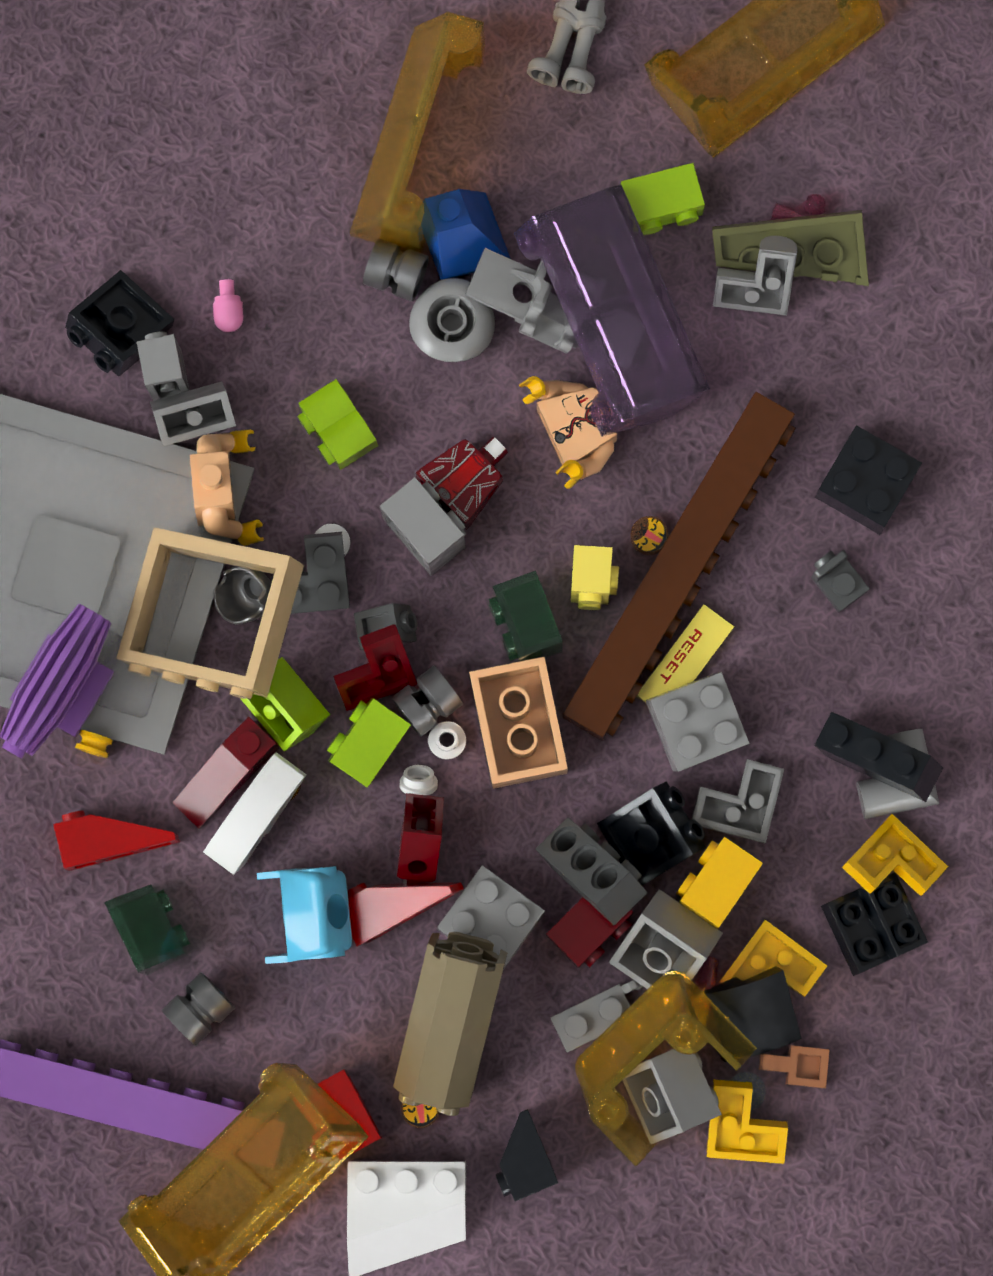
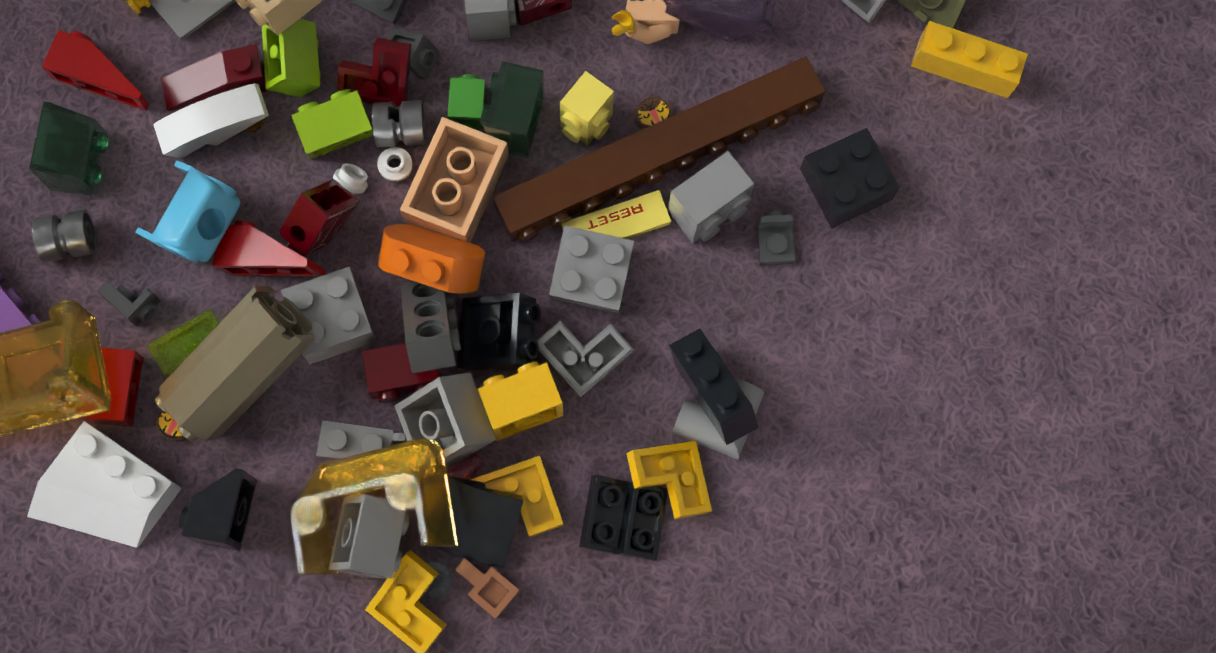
camera: 25 degrees right, 5 degrees down
(294, 1032) = (132, 308): none -> dark grey bracket
(380, 1029) = (179, 343): none -> clear neon green plate
(473, 638) = (467, 100): none -> bright green brick
(549, 808) = (431, 258): none -> orange brick
(759, 584) = (711, 198): none -> light grey brick
(902, 294) = (969, 59): none -> yellow brick

